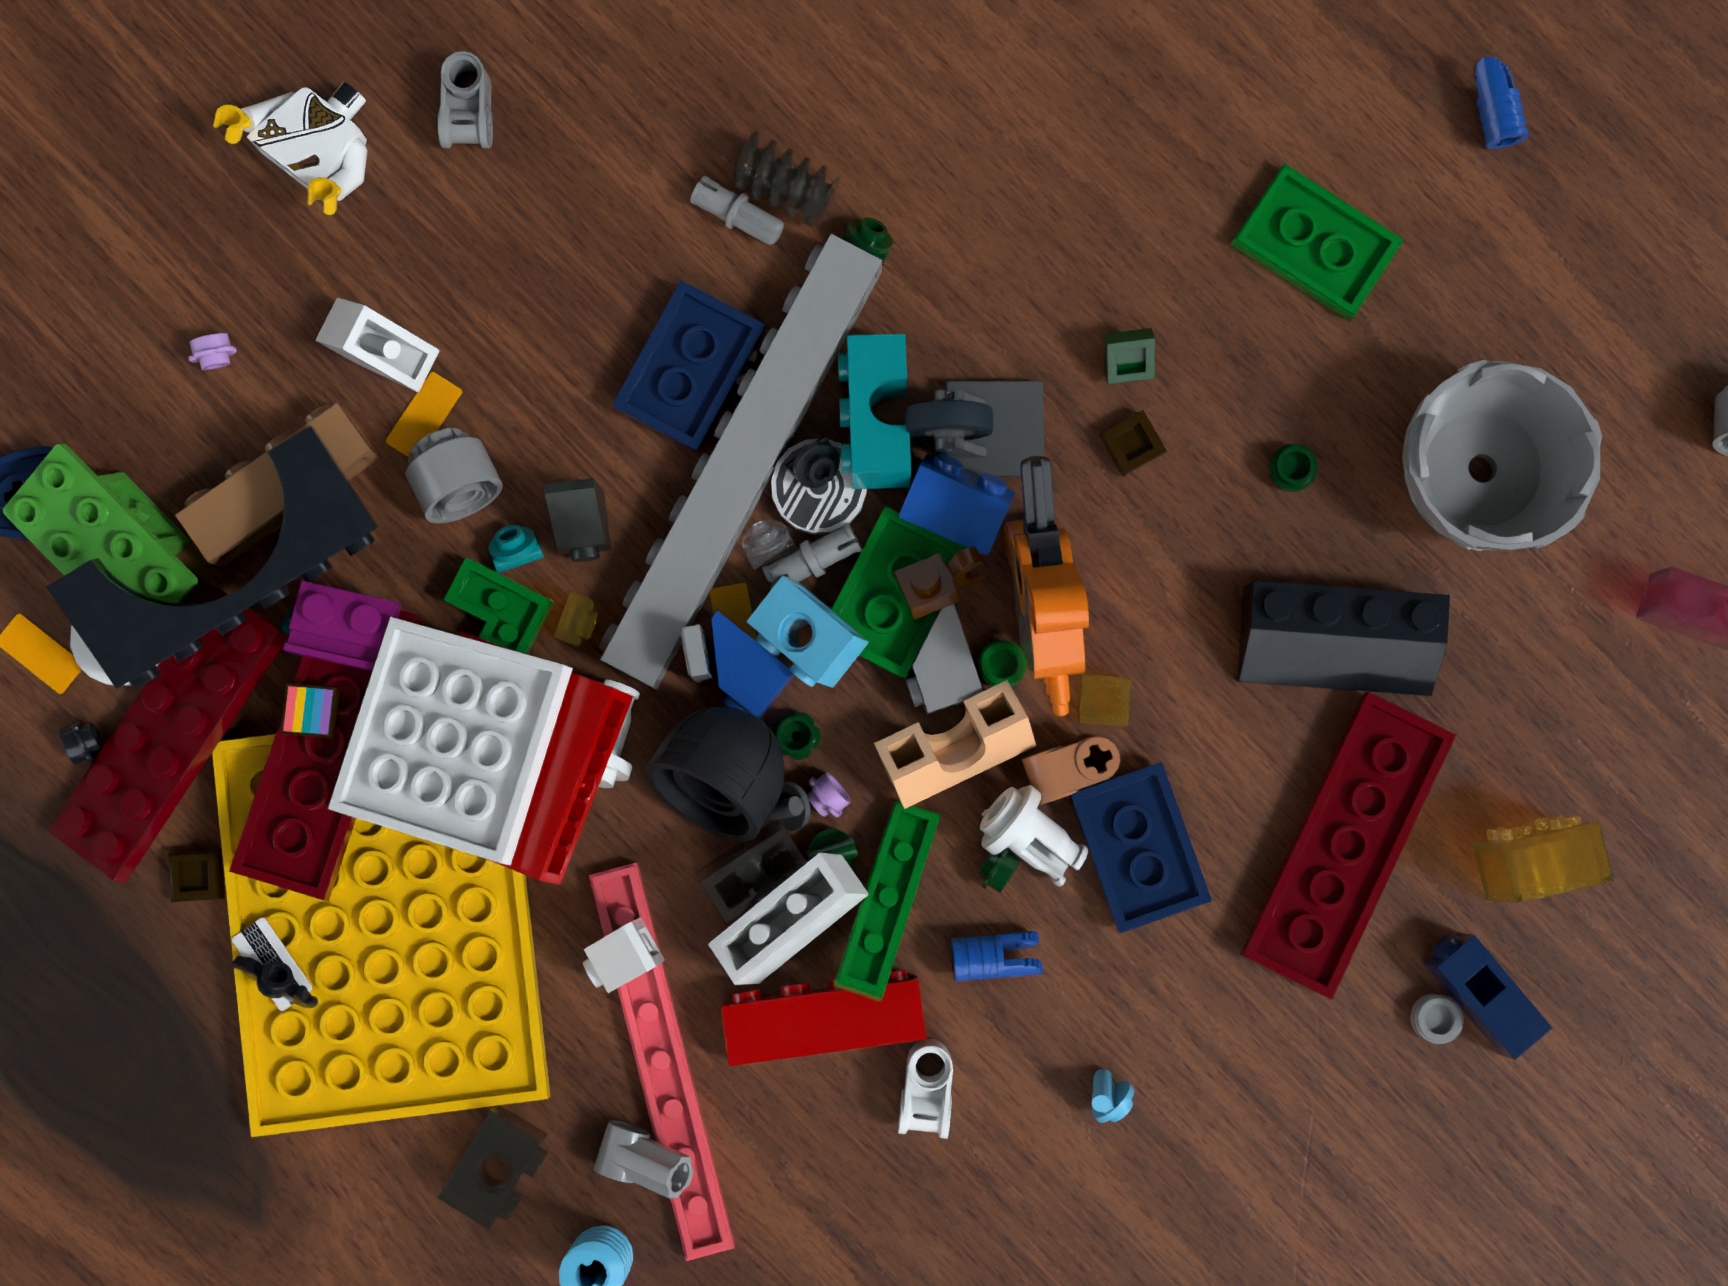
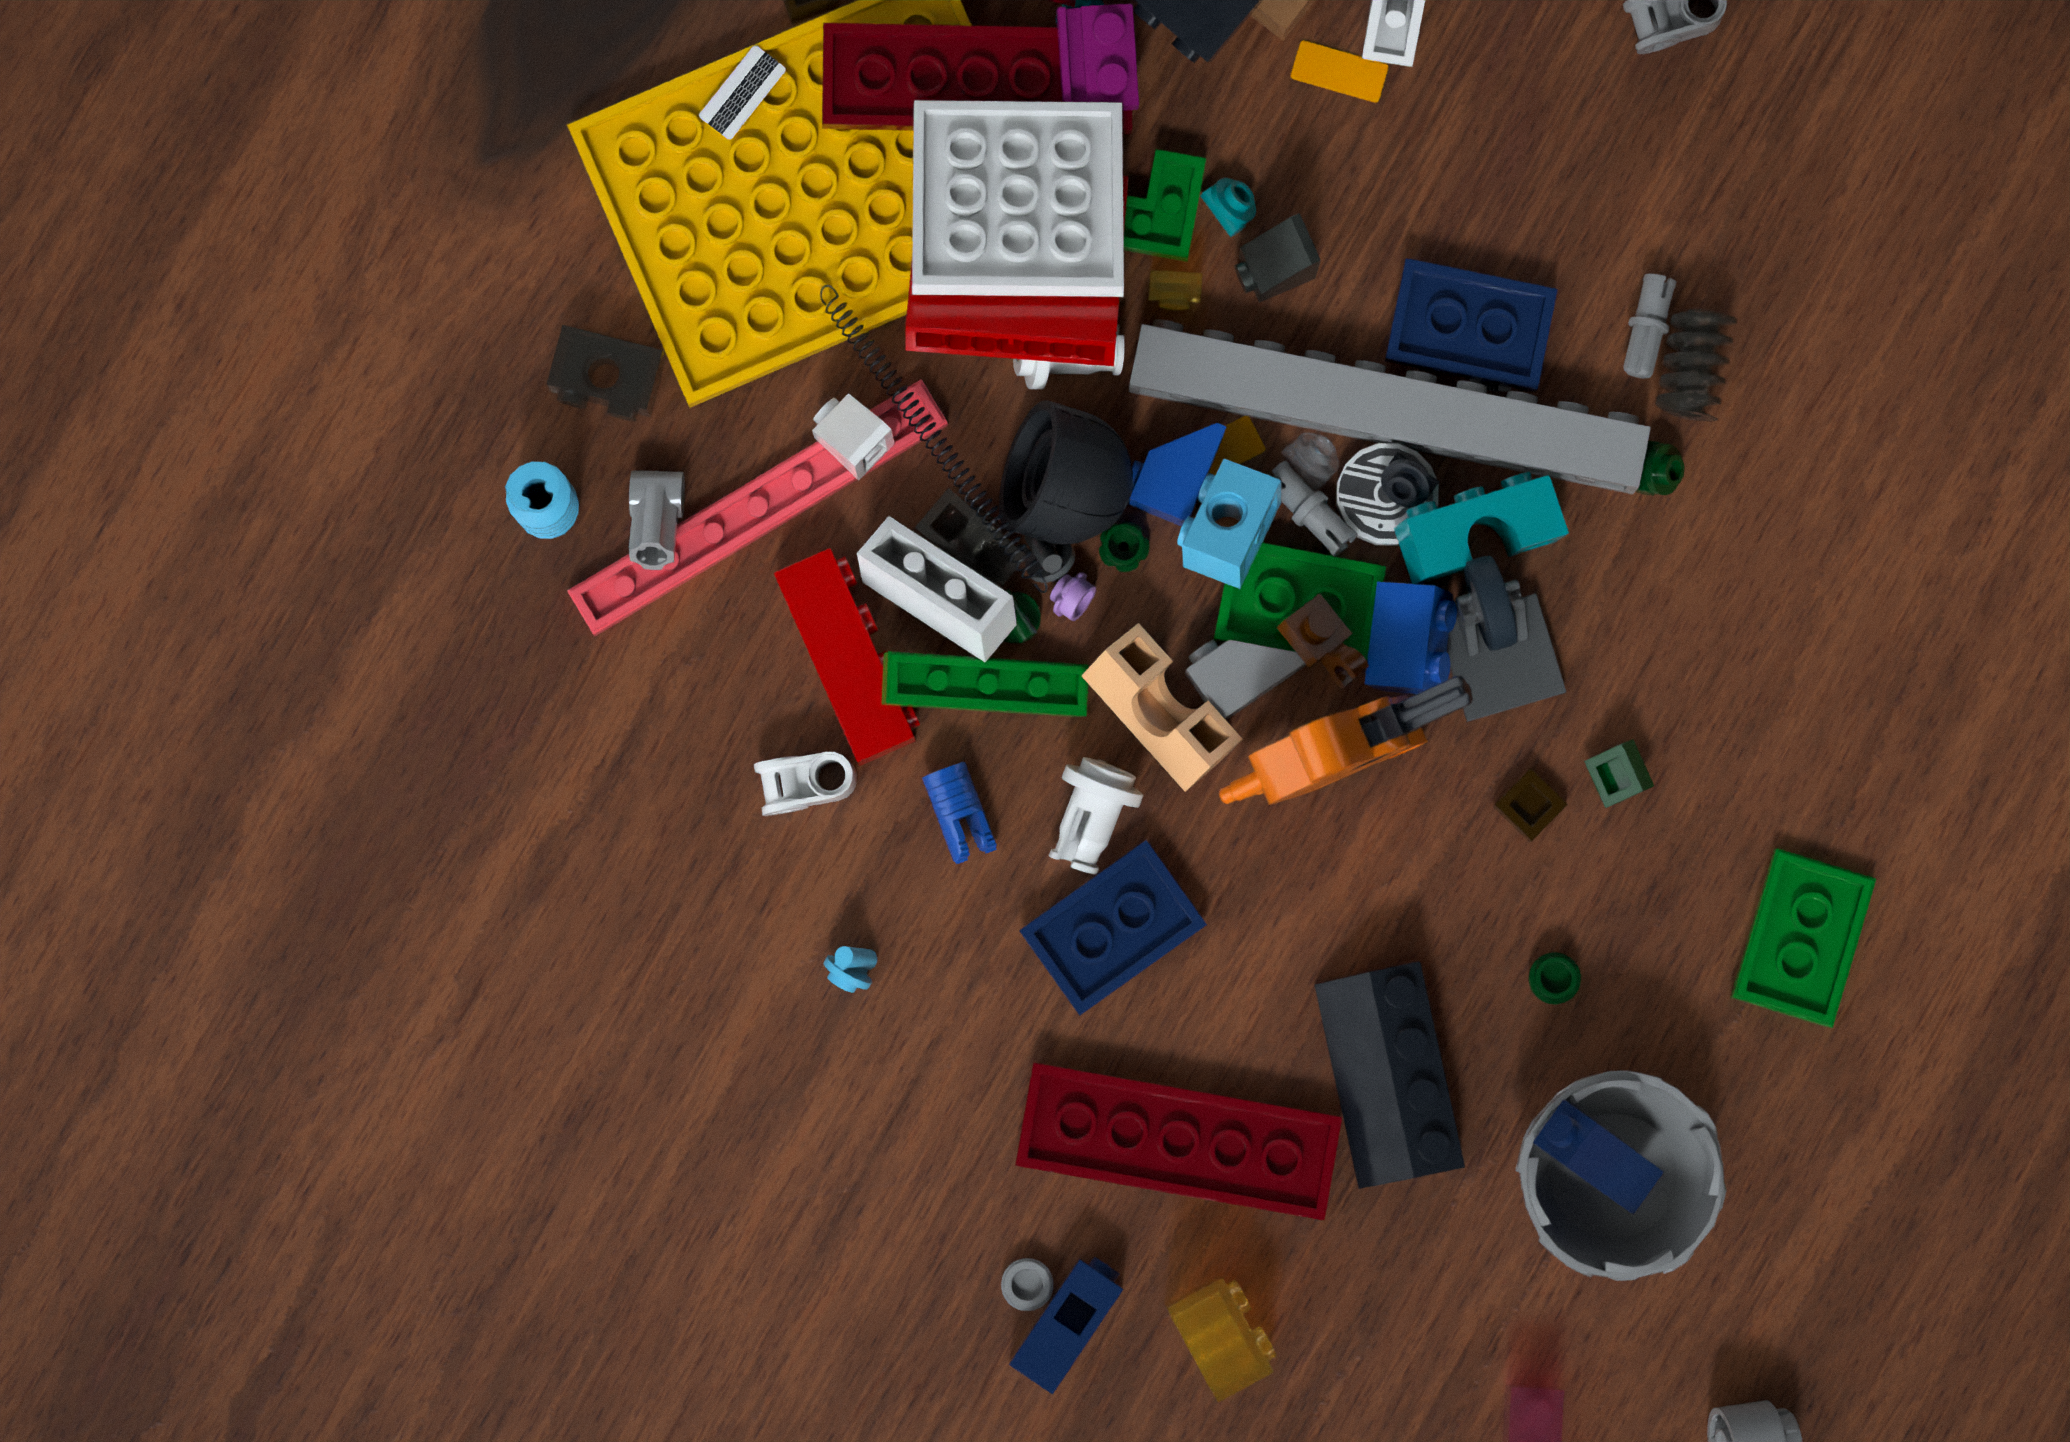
camera: 80 degrees right, 0 degrees up
(275, 981) = (727, 101): black piece -> none
(310, 711) = (1004, 52): tile -> none
(451, 475) = (1284, 118): light grey piece -> none
(551, 912) = (929, 427): none -> black piece
(697, 654) = (1176, 419): light grey tile -> none
(998, 870) = (1047, 791): dark green plate -> none
(1001, 662) = (1258, 730): green tile -> none
(1062, 768) = (1169, 826): nougat piece -> none
(1104, 700) = (1252, 849): clear yellow plate -> none
(1478, 473) = (1598, 1156): none -> dark blue brick
(1499, 105) = (2010, 1087): blue hinge -> none

